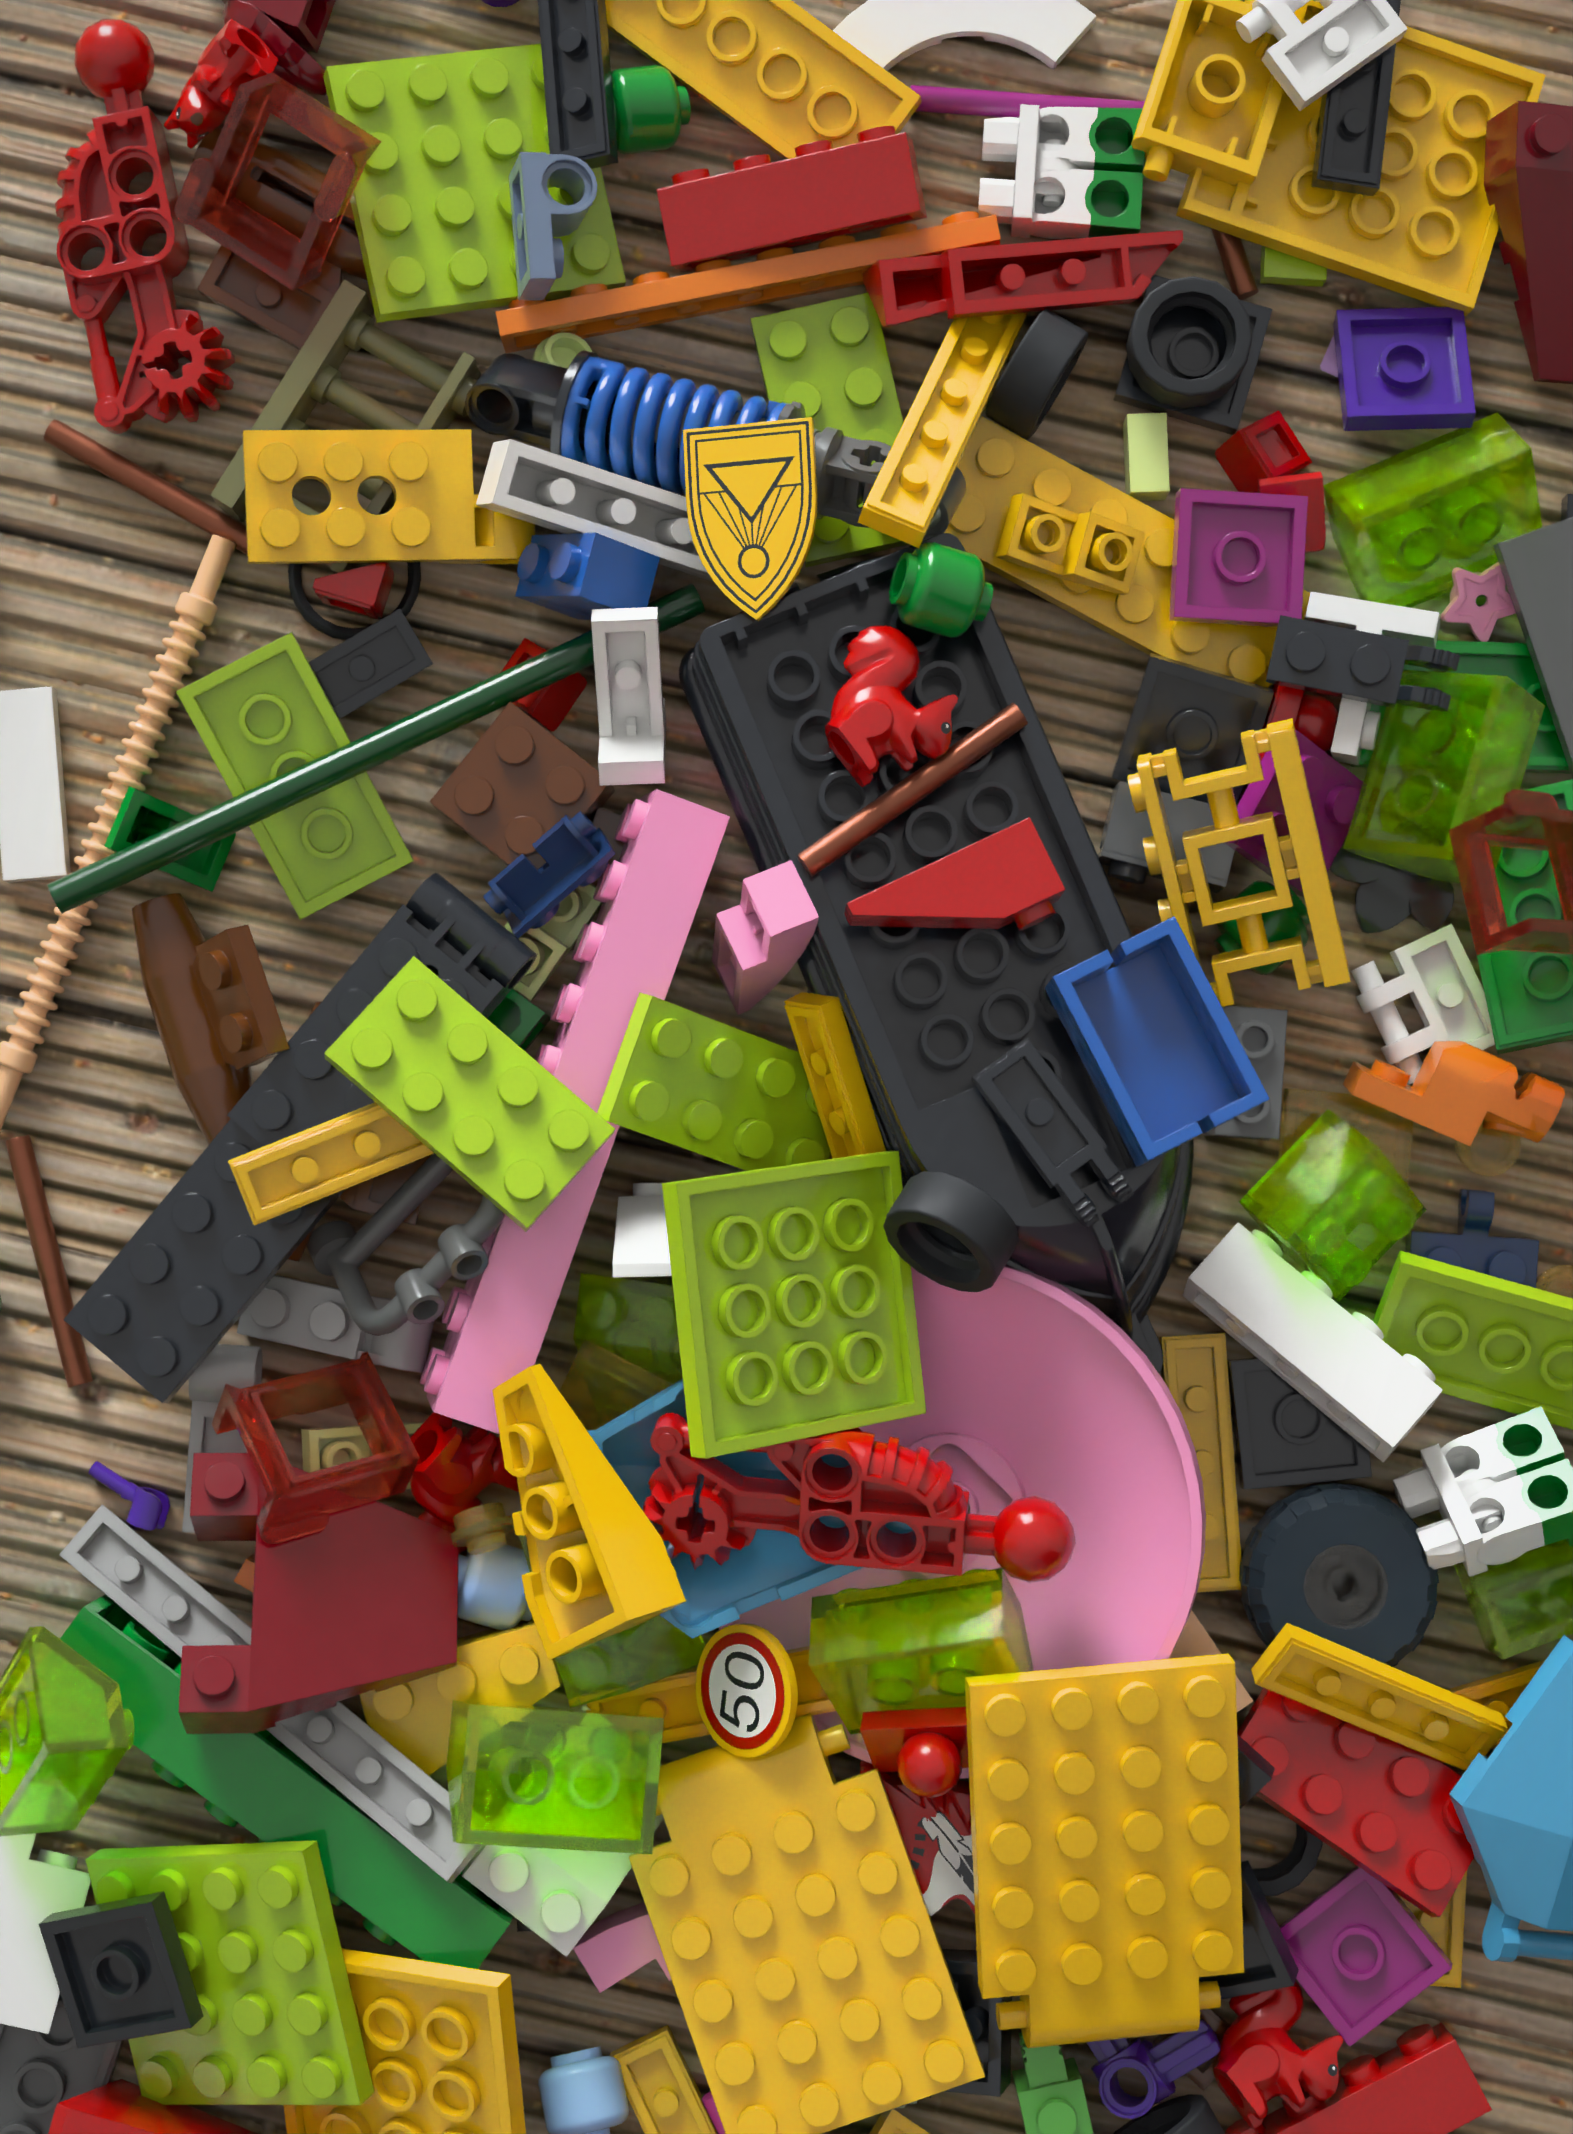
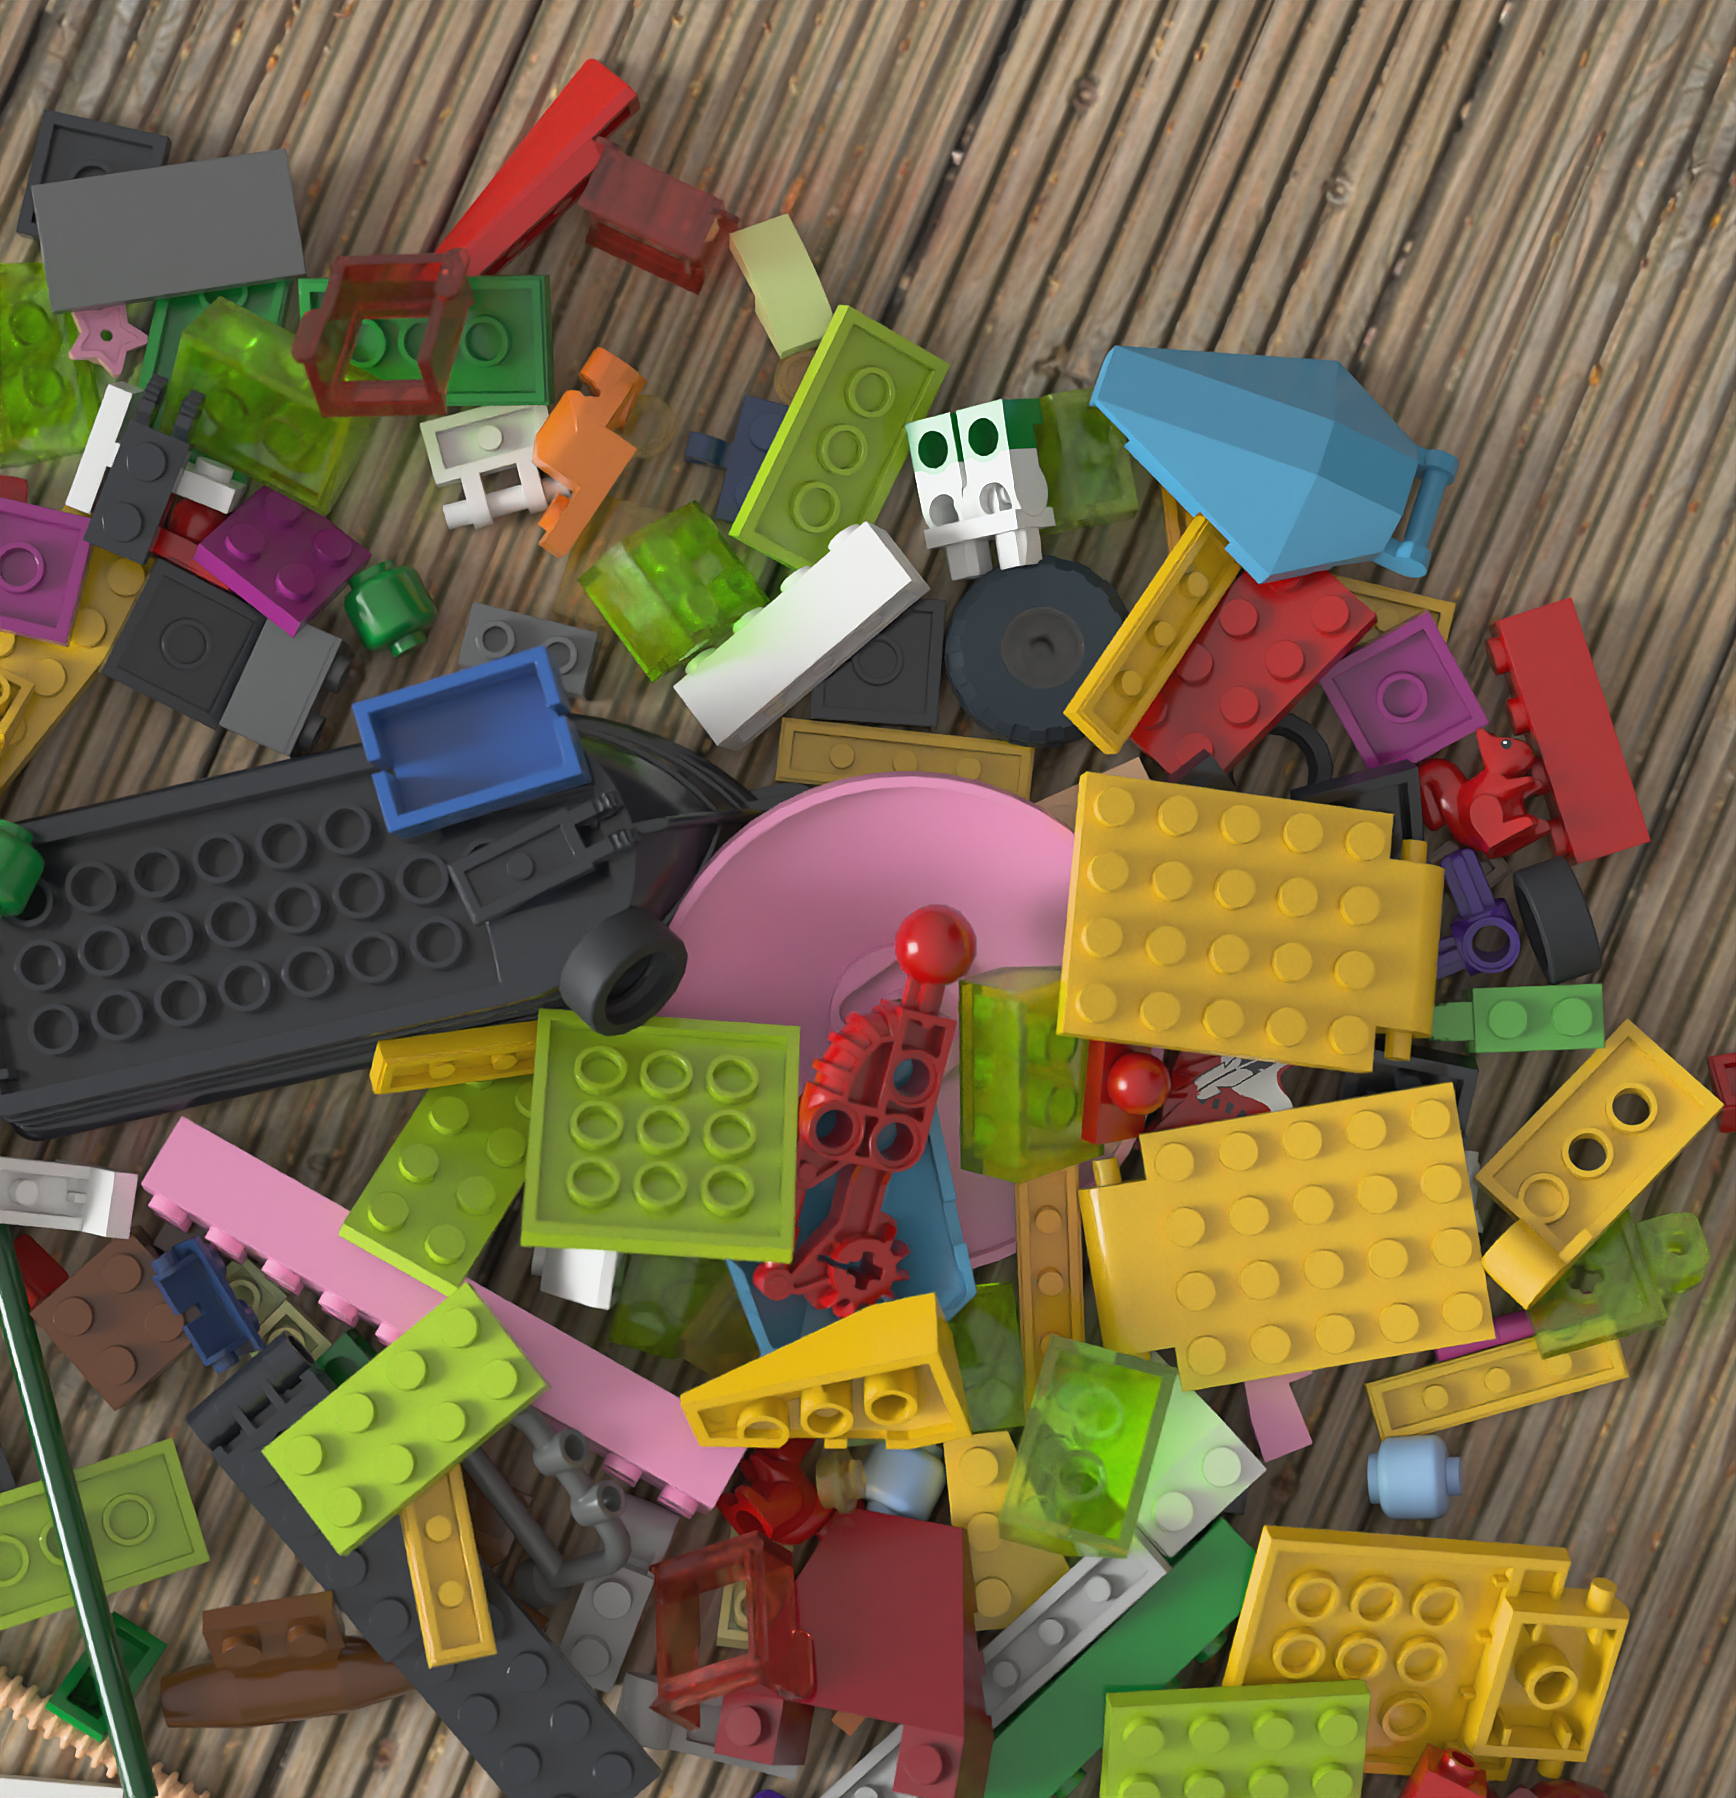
camera: 80 degrees left, 0 degrees up
(746, 1690) = (1040, 1248): piece -> none
(763, 934) = (305, 1103): bright pink slope -> none
(875, 717) = (102, 959): red animal -> none
(912, 789) = (186, 933): copper bar -> none
(976, 887) = (292, 892): red slope -> none
(1289, 858) = (321, 575): yellow fence -> none
(1392, 894) = (380, 474): black plate -> none

